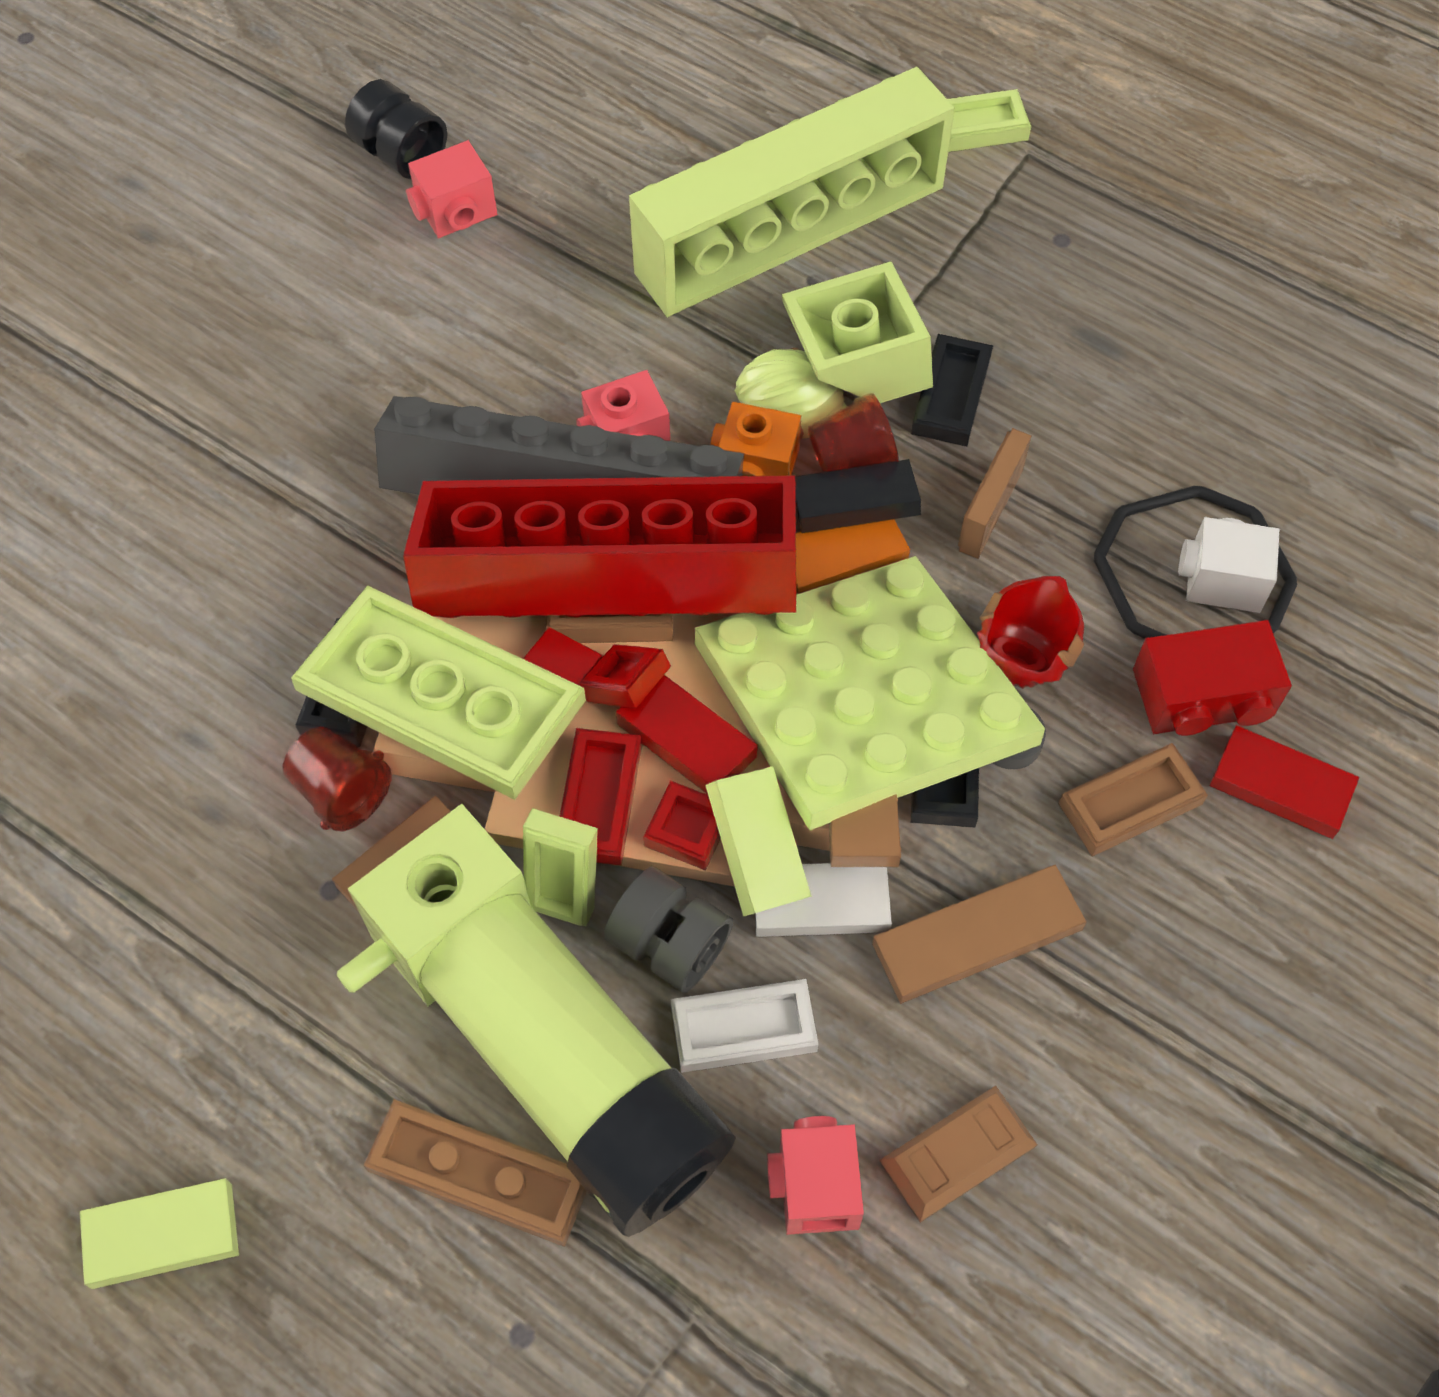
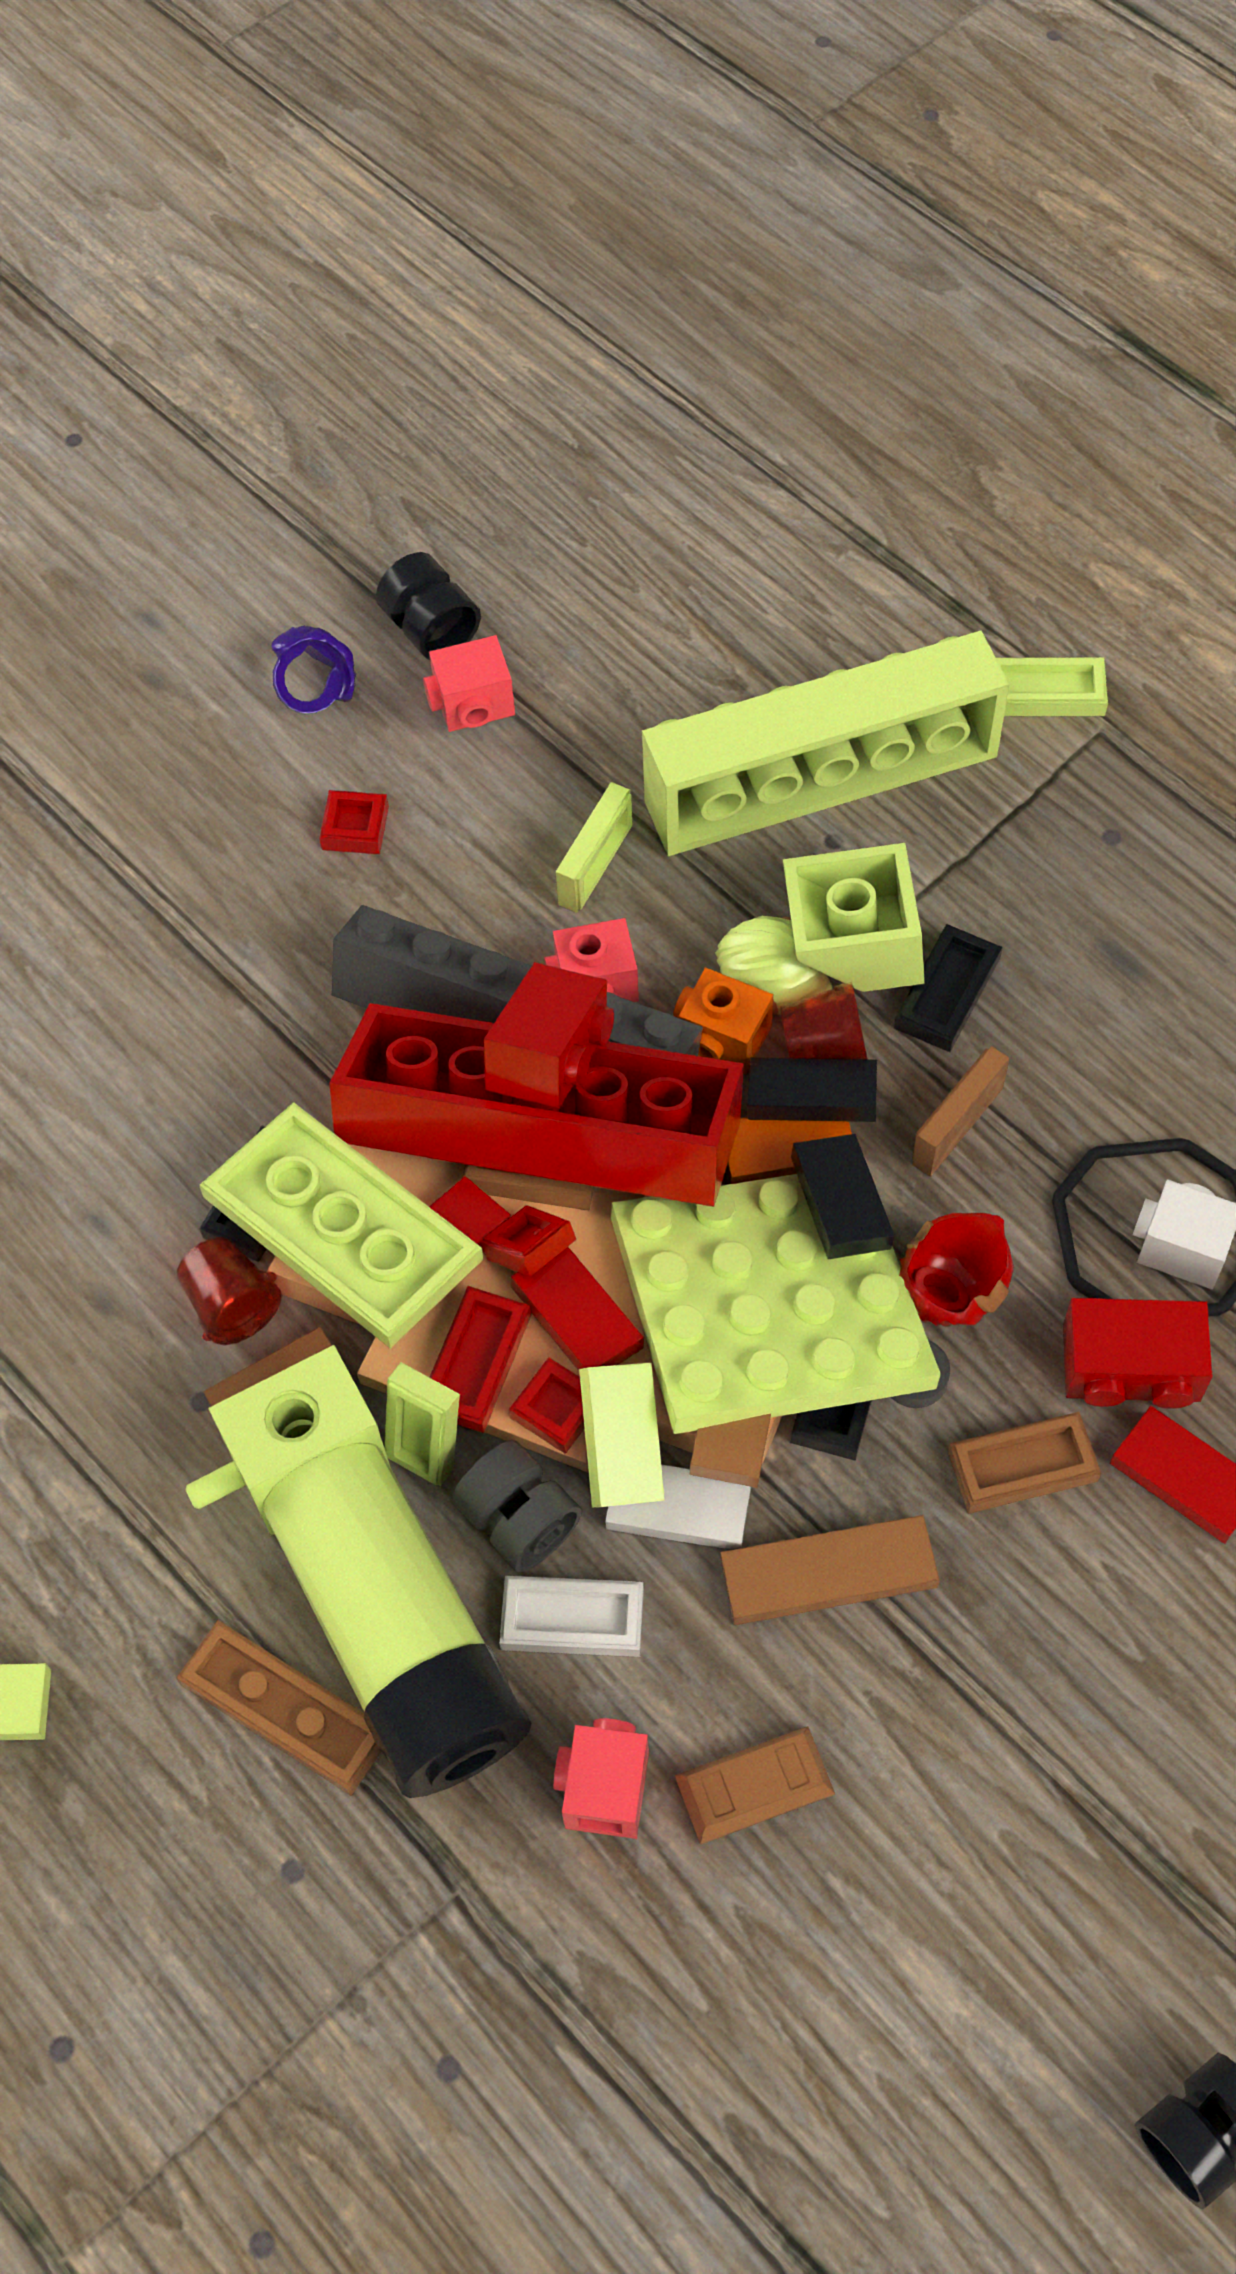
camera: 15 degrees right, 0 degrees up
(302, 180) = (324, 648): none -> dark purple piece
(366, 330) = (354, 822): none -> red tile
(600, 316) = (594, 847): none -> yellowish green tile
(607, 476) = (547, 1035): none -> red brick
(911, 584) = (842, 1196): none -> black tile

